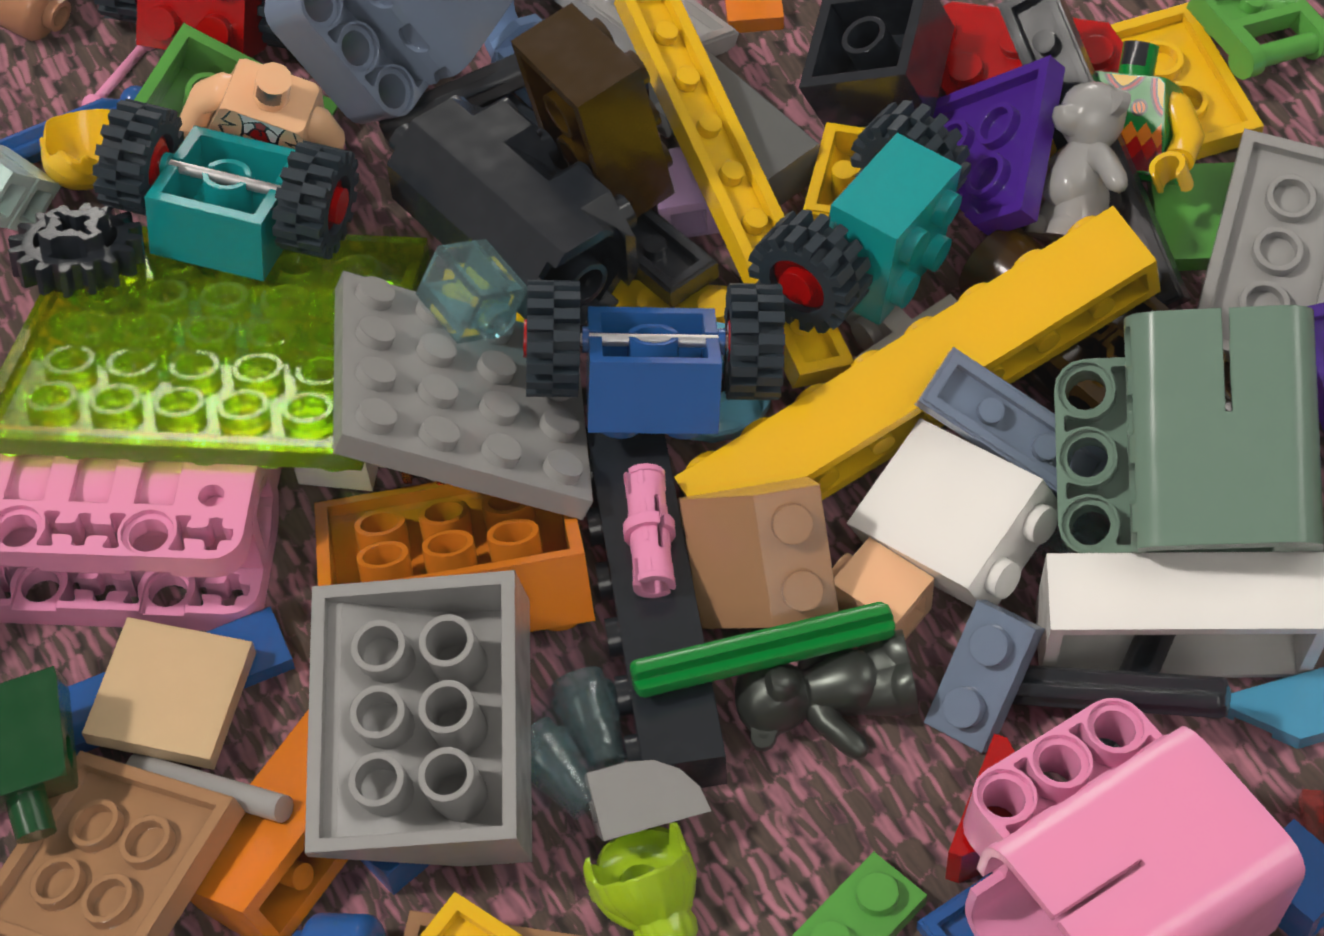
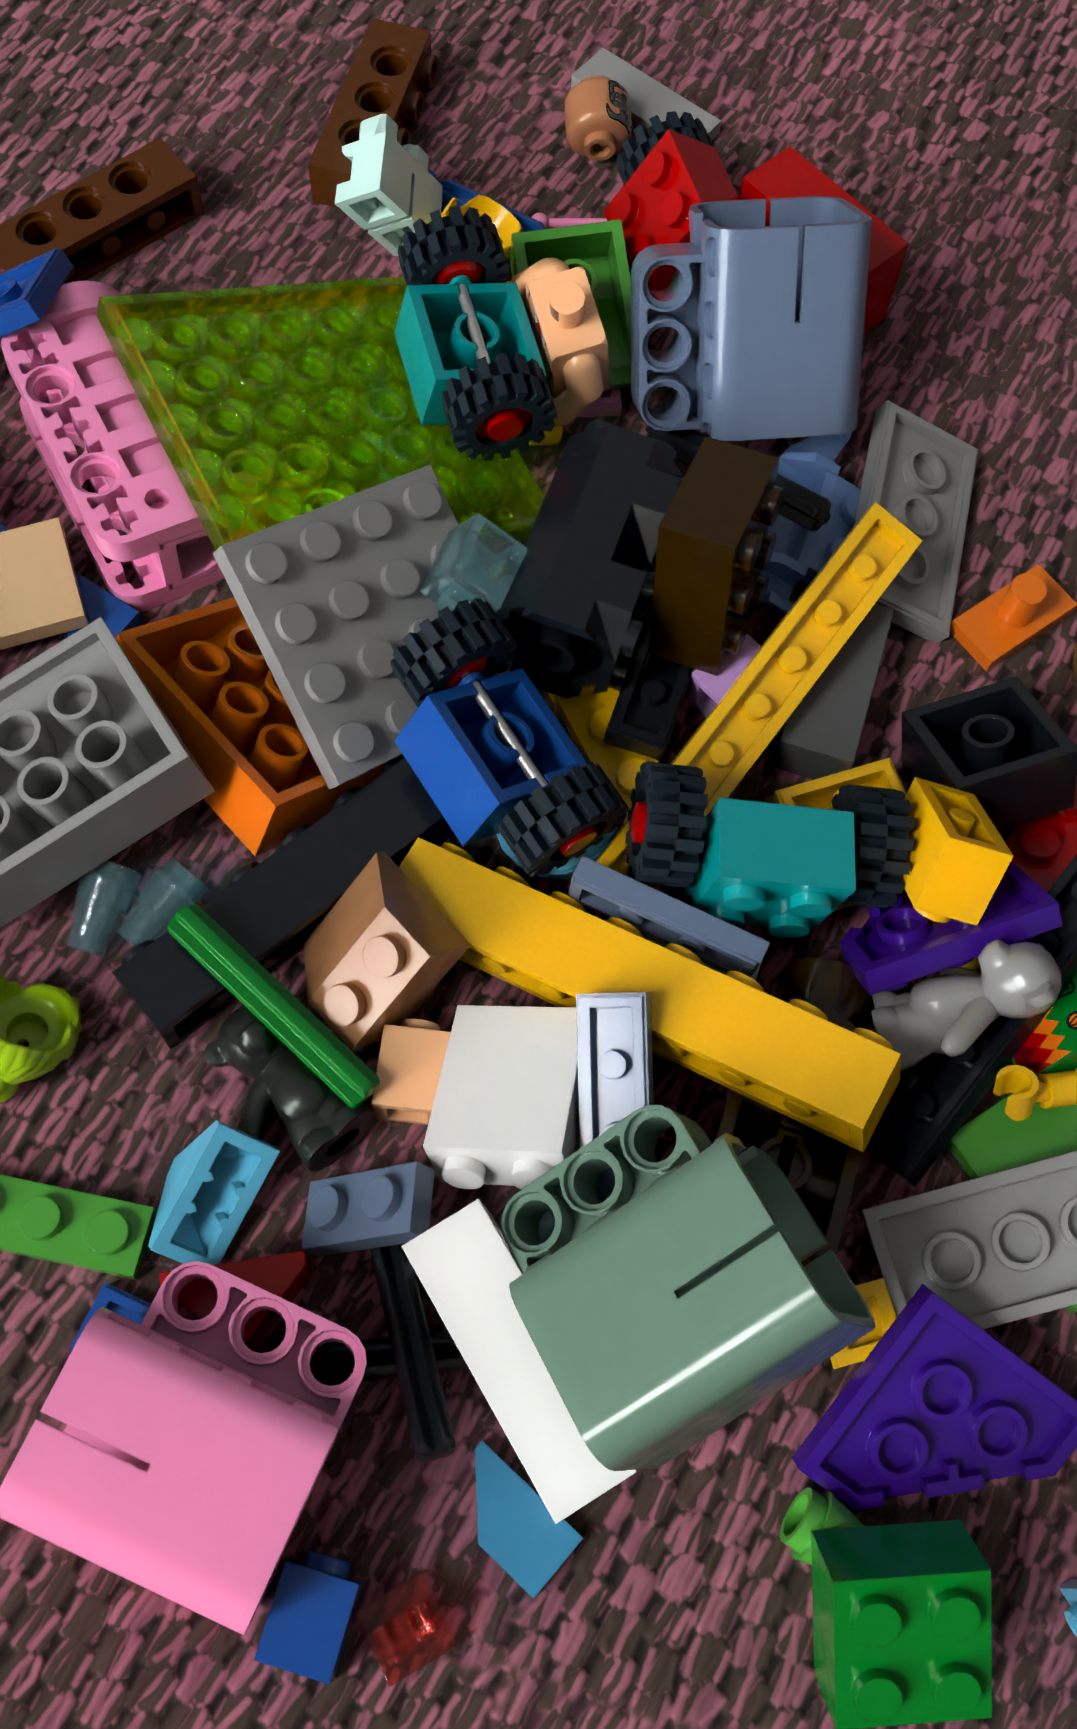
camera: 50 degrees right, 10 degrees up
(76, 249) = (349, 279): black gear -> none
(641, 797) = (79, 986): light grey brick -> none
(649, 531) = (339, 845): bright pink pin -> none
(876, 324) = (666, 918): none -> sand blue tile
(885, 799) = (209, 1193): none -> medium azure slope
(973, 93) = (954, 854): none -> yellow brick

